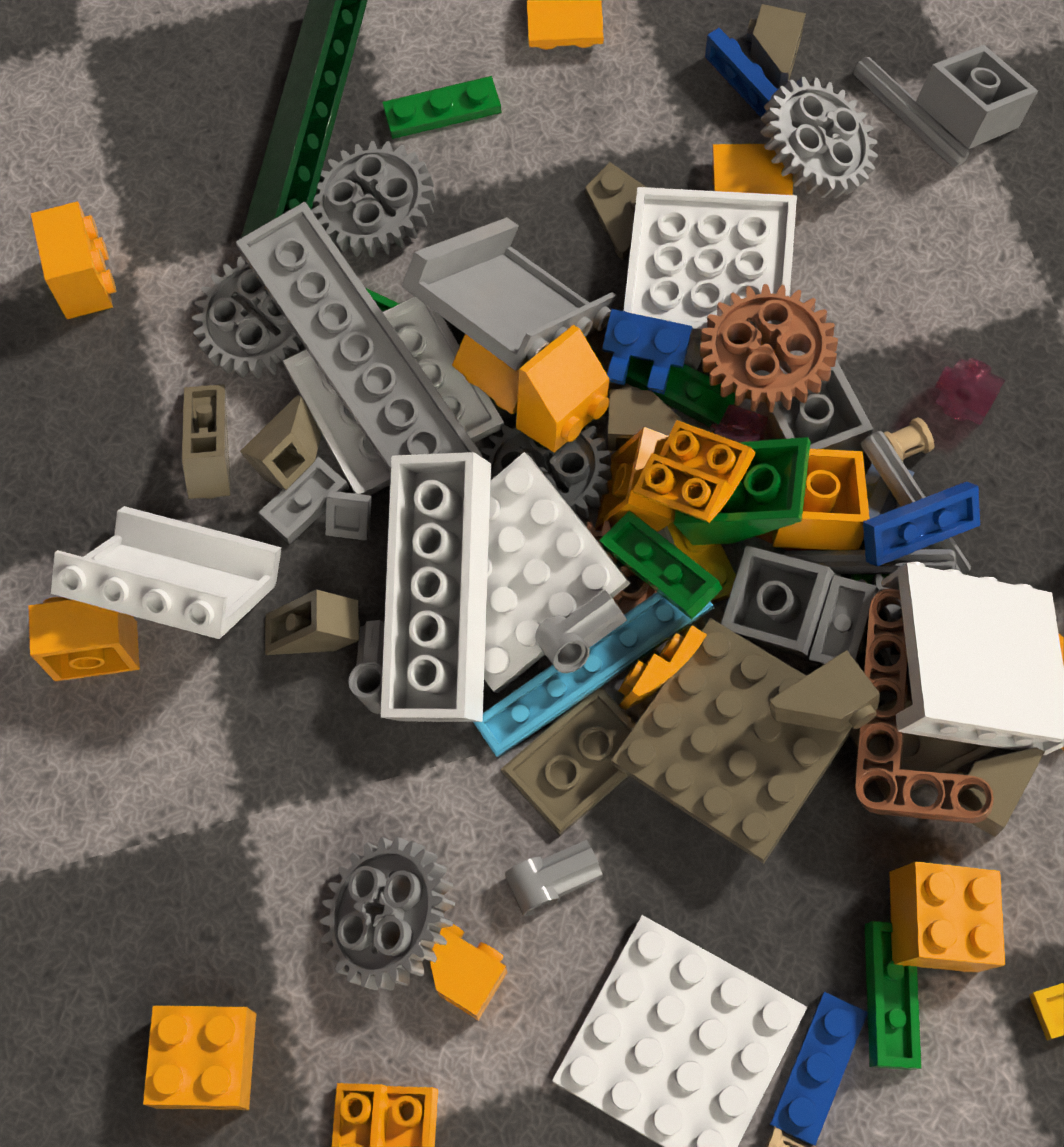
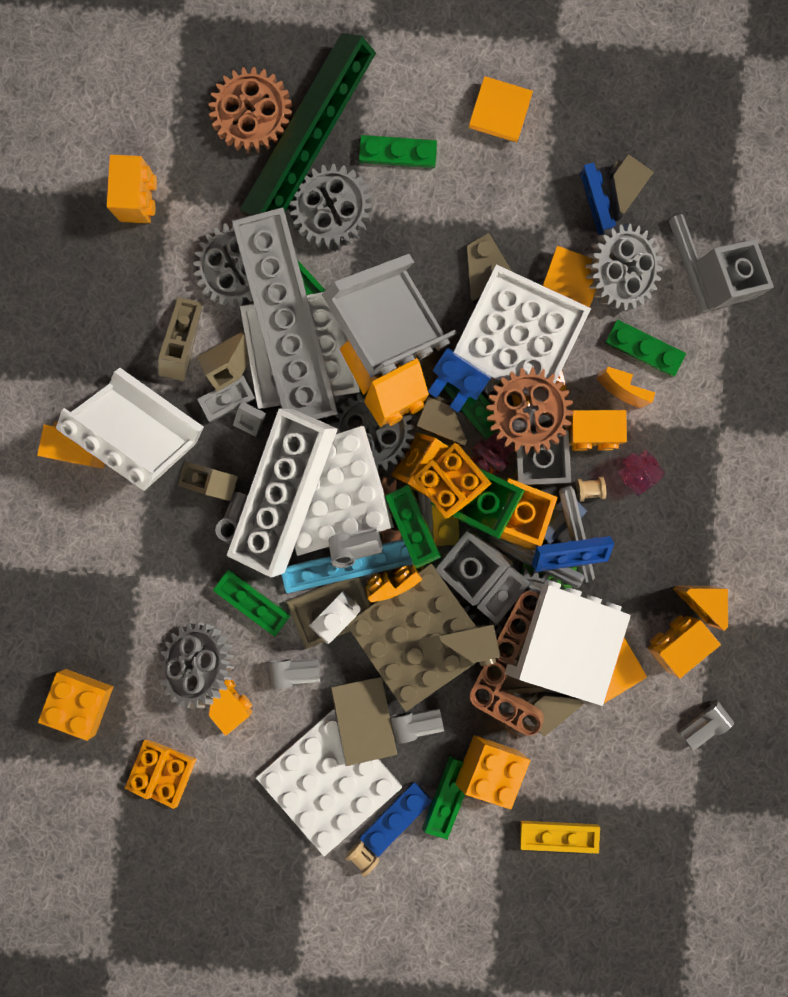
camera: 15 degrees right, 20 degrees up
(215, 119) = (235, 93): none -> nougat gear
(445, 789) = (251, 602): none -> green plate
(587, 757) = (335, 617): none -> white torso
(699, 914) = (363, 721): none -> dark tan tile
(781, 895) = (412, 725): none -> light grey piece
(880, 347) = (597, 428): none -> light orange brick
(890, 286) = (618, 384): none -> light orange slope
(897, 235) = (645, 348): none -> green plate

